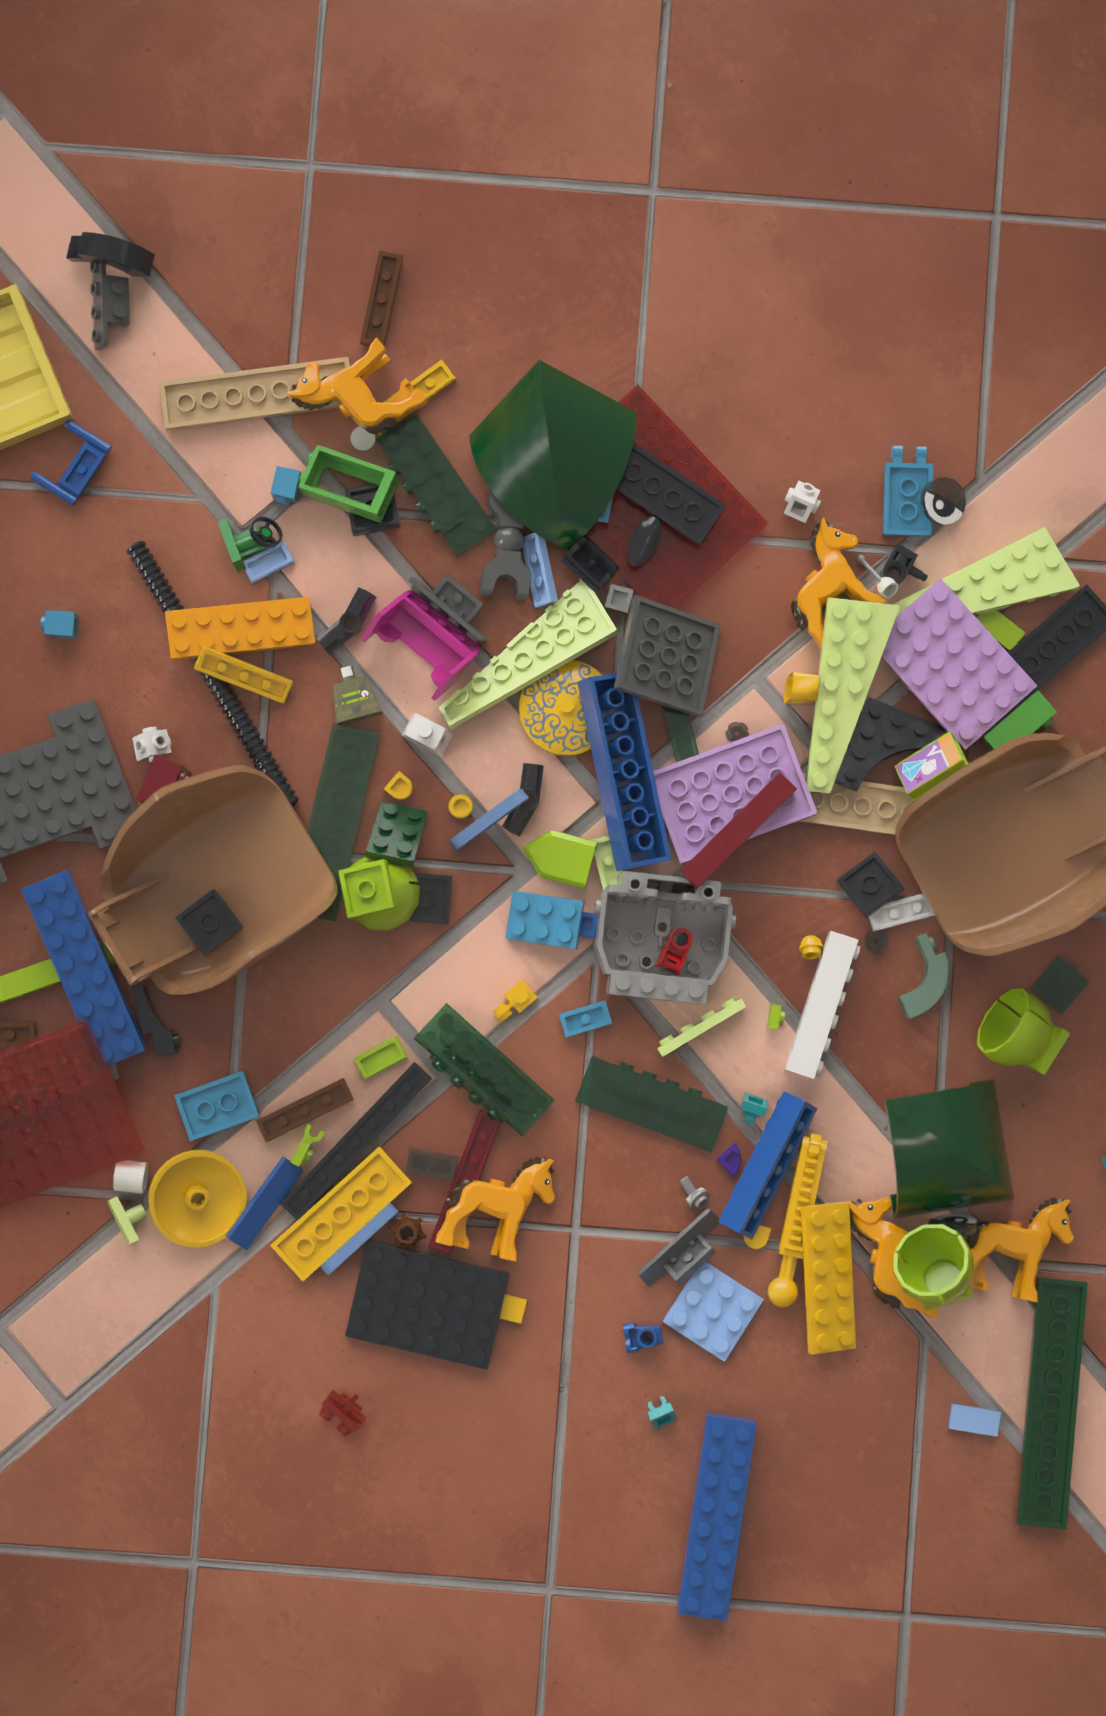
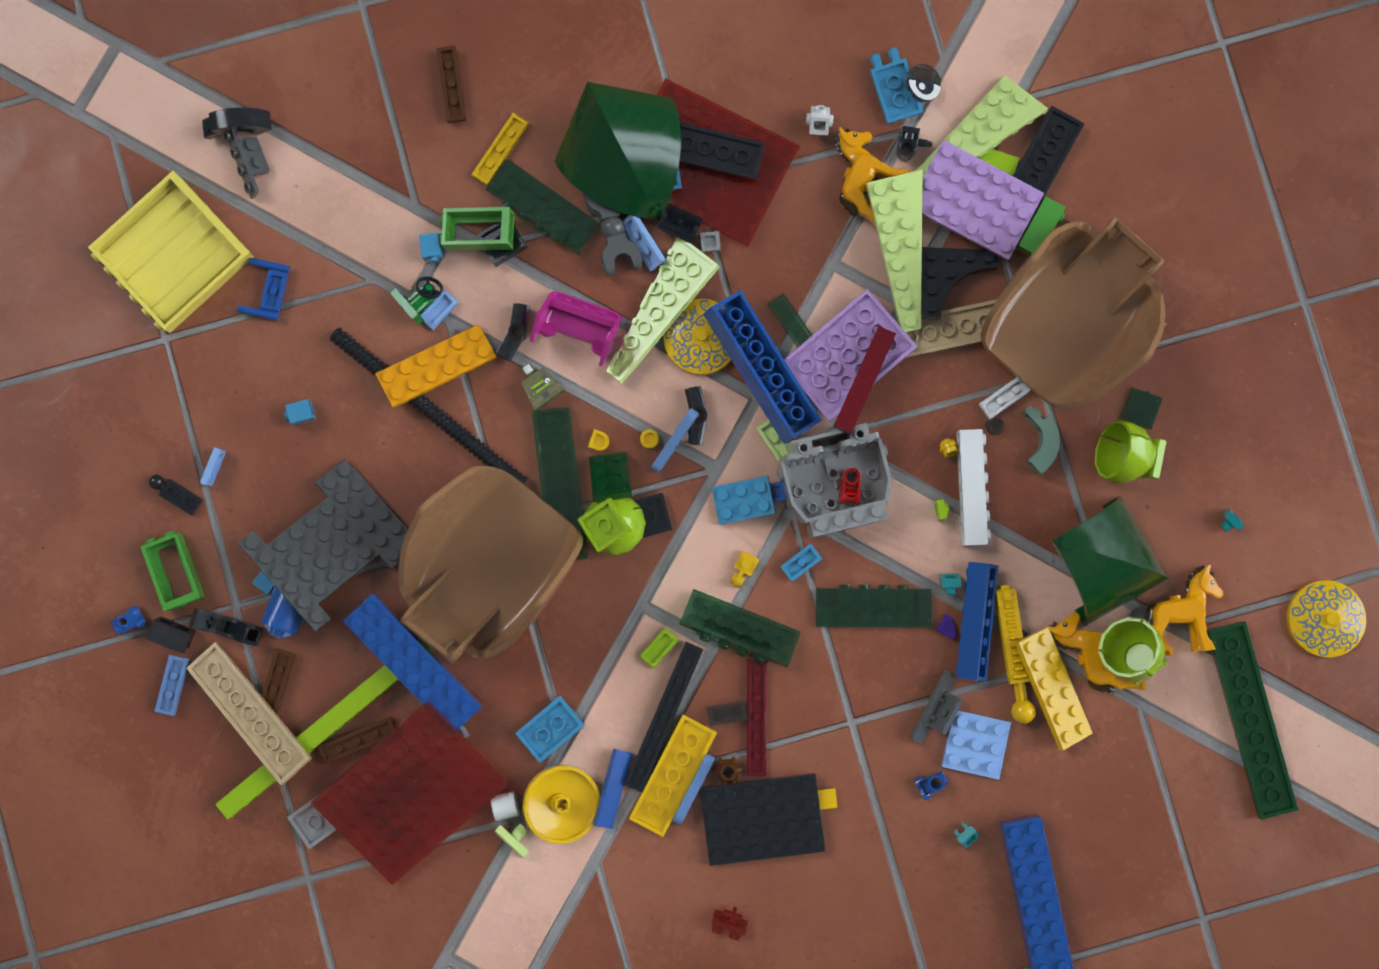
camera: 20 degrees left, 0 degrees up
(151, 743) = (402, 477): white brick -> none
(160, 774) = (416, 495): dark red slope -> none
(164, 1039) = (492, 693): black slope -> none
(209, 922) = (494, 594): black plate -> none
(238, 395) = (384, 187): tan plate -> none
(243, 674) = (451, 399): yellow tile -> none
(303, 1151) = (628, 740): lime plate -> none
(305, 1110) = (617, 708): reddish brown plate -> none
(354, 395) = (458, 162): light orange animal -> none
(362, 439) = (475, 192): white sticker -> none
(427, 734) = (605, 394): white torso -> none
(454, 600) = (589, 287): dark grey bracket -> none
(502, 1202) = (787, 722): light orange animal -> none
(562, 857) = (739, 449): lime tile -> none
(644, 540) = (713, 191): black arm -> none
(667, 656) = (762, 270): dark grey plate -> none
(697, 1198) = (933, 665): light grey plate -> none
(709, 1020) = (893, 530): yellowish green plate -> none
(732, 728) = (831, 305): clear smoke plate -> none
(759, 1239) = (991, 678): yellow tile -> none
(801, 689) = (871, 258): yellow piece -> none
(870, 885) = (975, 385): black tile -> none
(887, 586) = (905, 159): white hinge -> none
(931, 765) = (989, 281): piece -> none
(958, 1222) = (1134, 611): tile -> none
(974, 1419) = (1199, 753): light blue tile -> none

